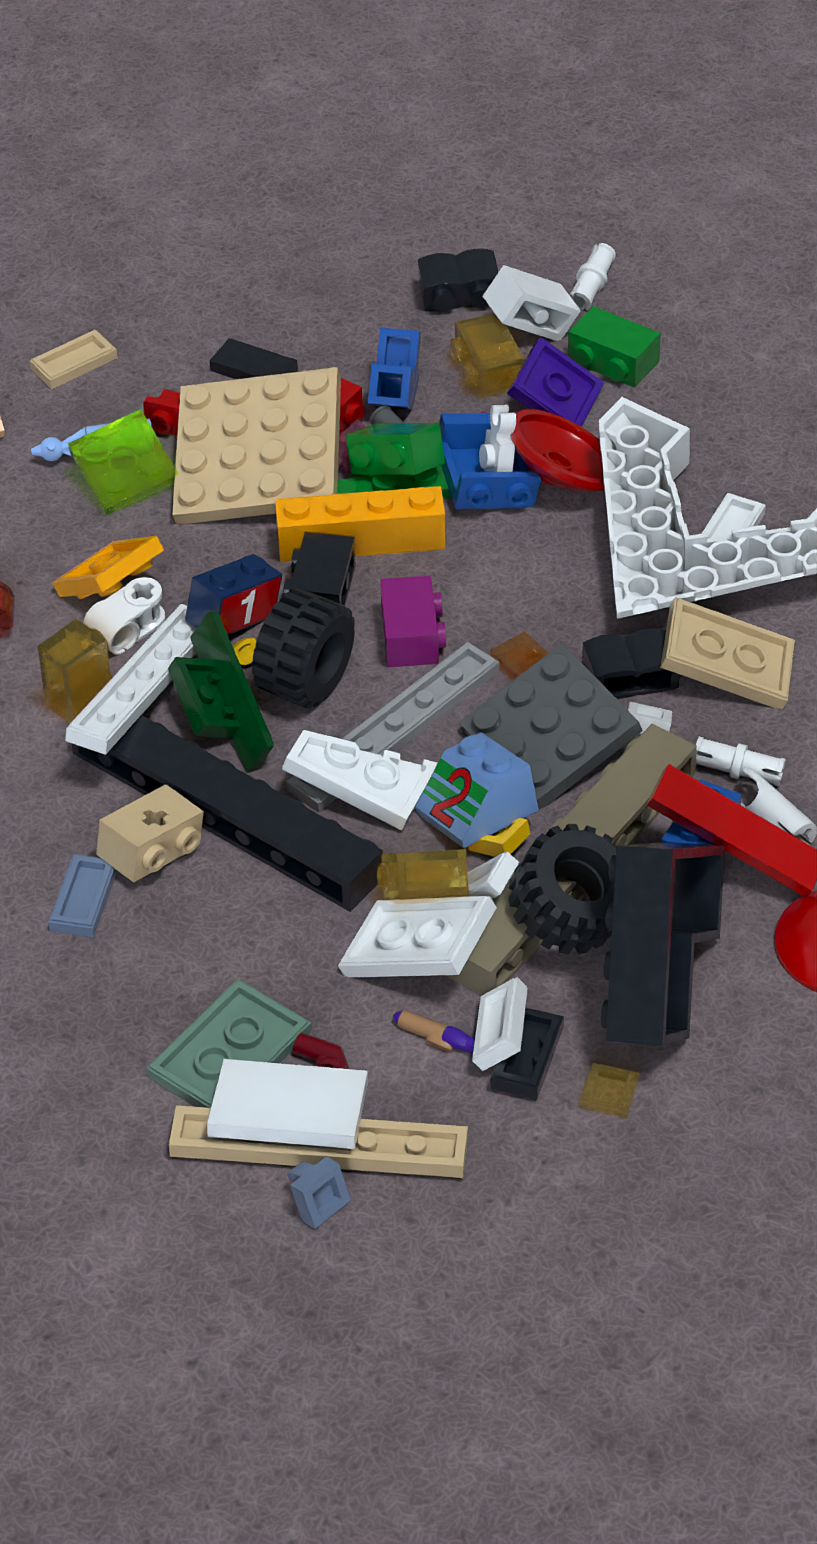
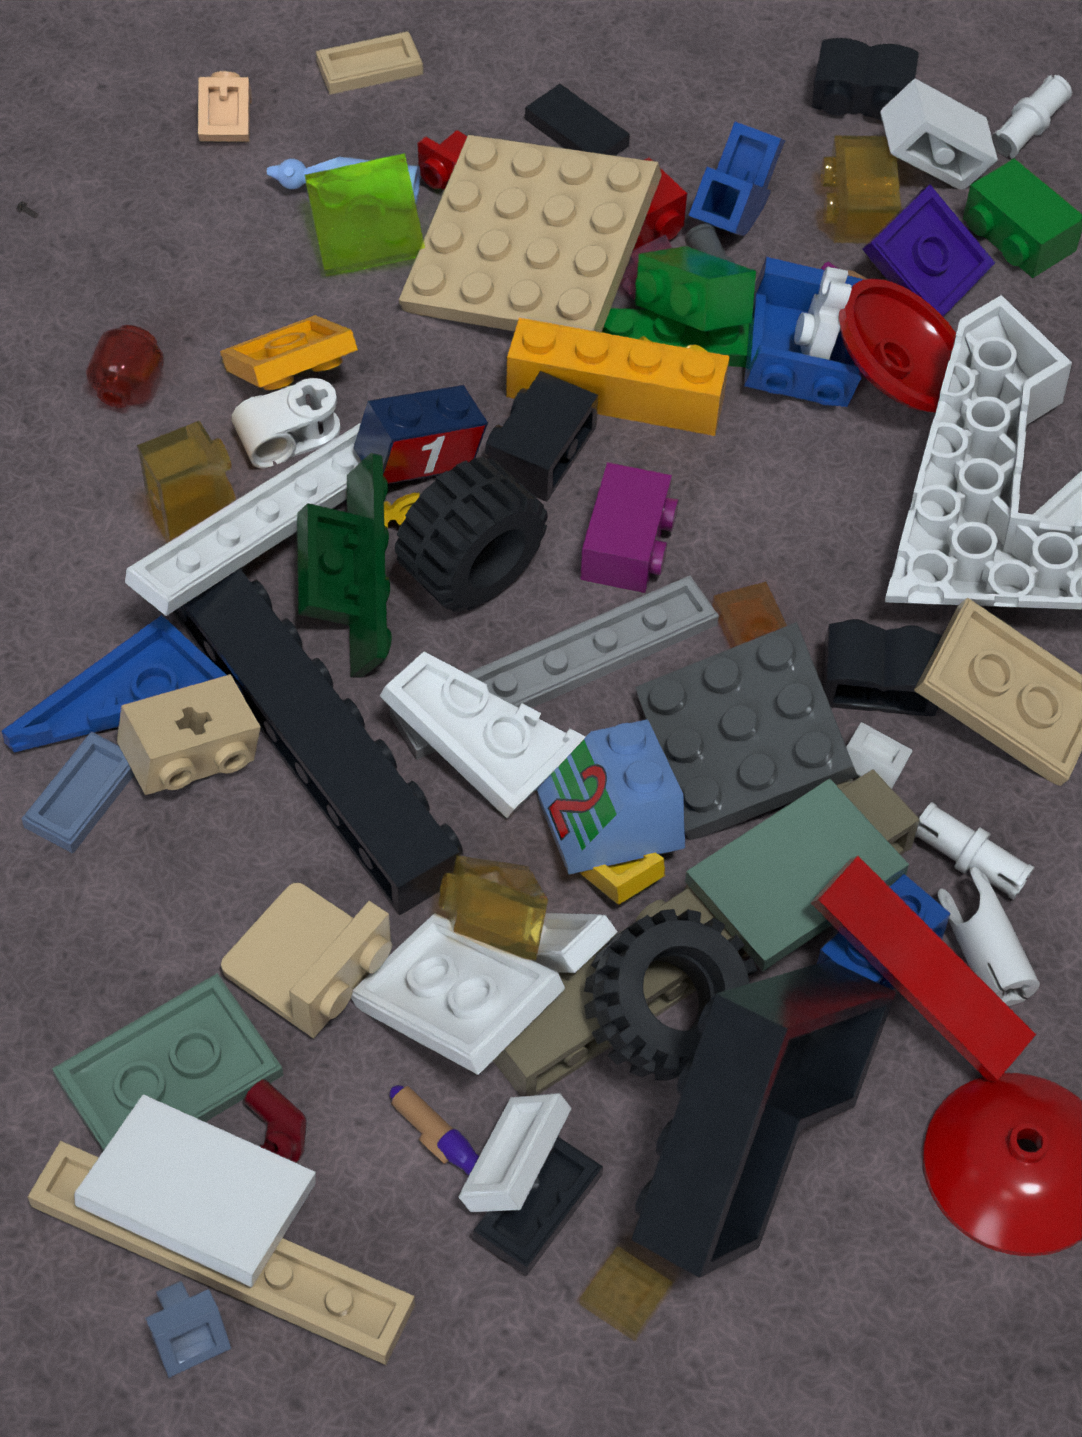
camera: 15 degrees right, 10 degrees up
(76, 821) = (143, 666): none -> blue wing
(300, 950) = (308, 956): none -> tan bracket
(617, 793) = (776, 869): none -> sand green tile

